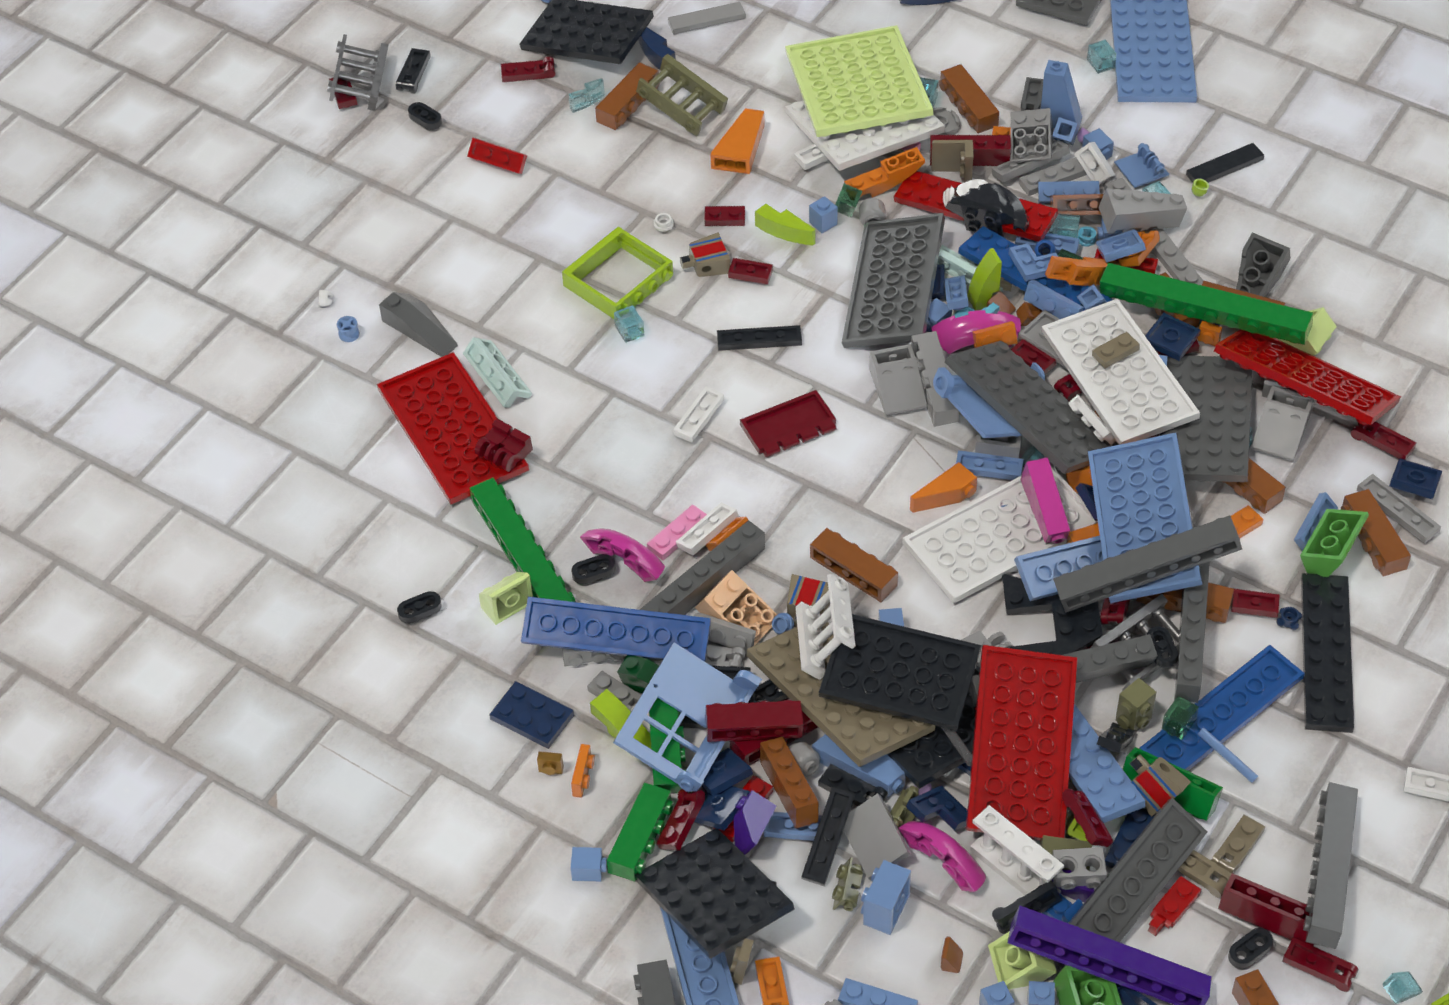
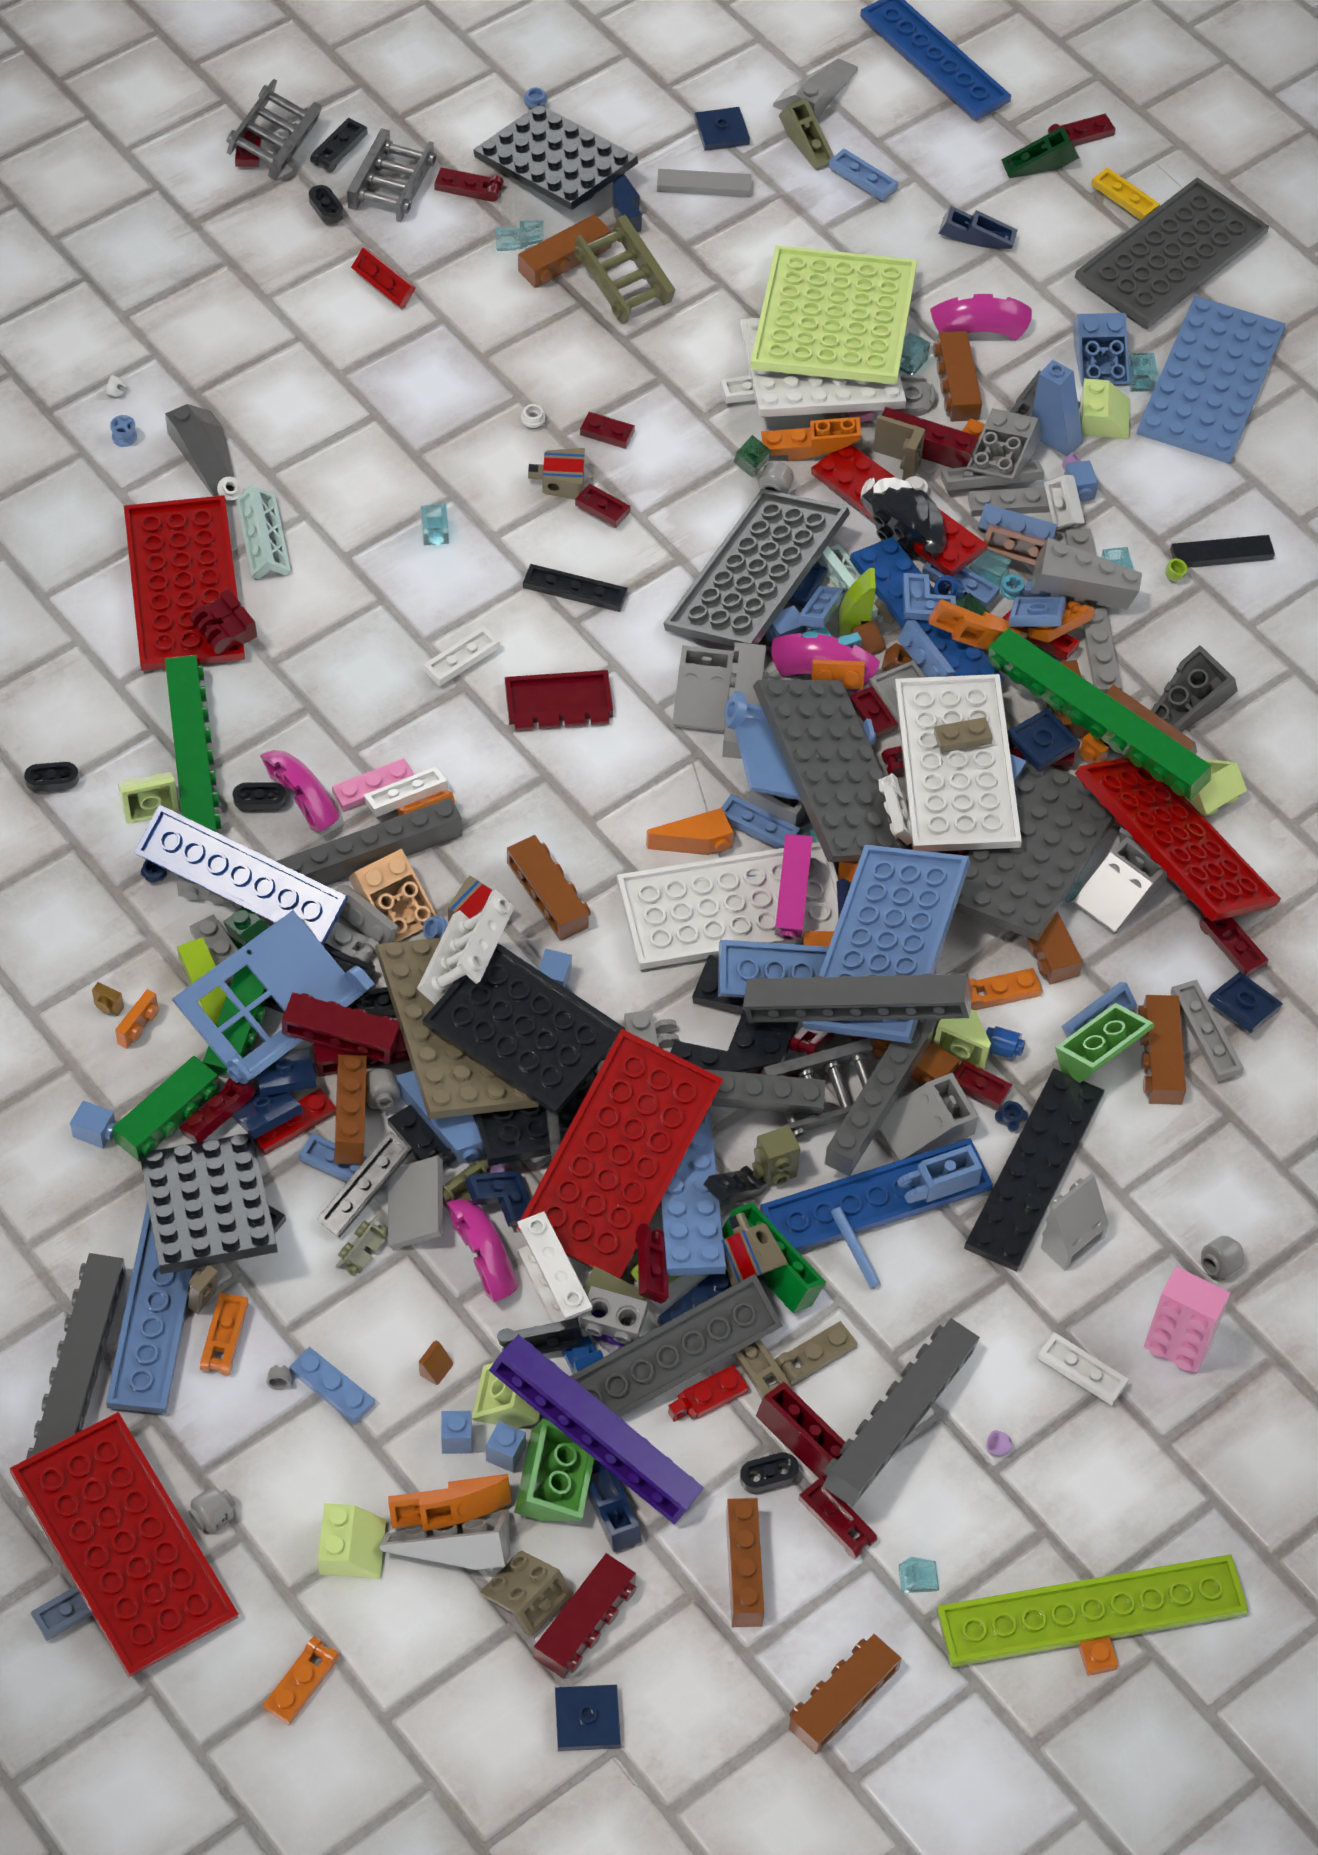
camera: 15 degrees right, 5 degrees up
(448, 74) = (376, 161): none -> flat silver fence
(457, 341) = (230, 495): none -> white plate
(531, 714) = (116, 938): dark blue plate -> none
(537, 658) = (146, 871): none -> dark blue plate
(602, 251) = (442, 431): lime window -> none
(740, 143) = (666, 348): orange slope -> none
(751, 820) = (284, 1137): slope -> none
(784, 225) = (667, 463): lime slope -> none
(823, 214) = (717, 464): medium blue brick -> none
(886, 897) = (392, 1273): medium blue brick -> none
(965, 49) = (983, 314): none -> dark pink brick
(1063, 43) = (1102, 347): none -> medium blue slope
(1066, 131) = (1049, 451): medium blue brick -> none
(1090, 91) = (1104, 410): none -> yellowish green slope
(1091, 298) = (971, 663): medium blue slope -> none
(1142, 167) = (1121, 523): medium blue hinge -> none
(1166, 650) = (838, 1101): black plate -> none
(1180, 717) = (818, 1187): clear green brick -> none
(1233, 571) = (964, 1039): none -> yellowish green slope
(1234, 639) = (929, 1118): none -> light grey slope
(1256, 566) = (1005, 1042): none -> blue brick
(1270, 676) = (943, 1175): none -> medium blue hinge
(1384, 680) = (1075, 1223): none -> light grey slope
(1407, 862) = (998, 1443): none -> lavender hinge

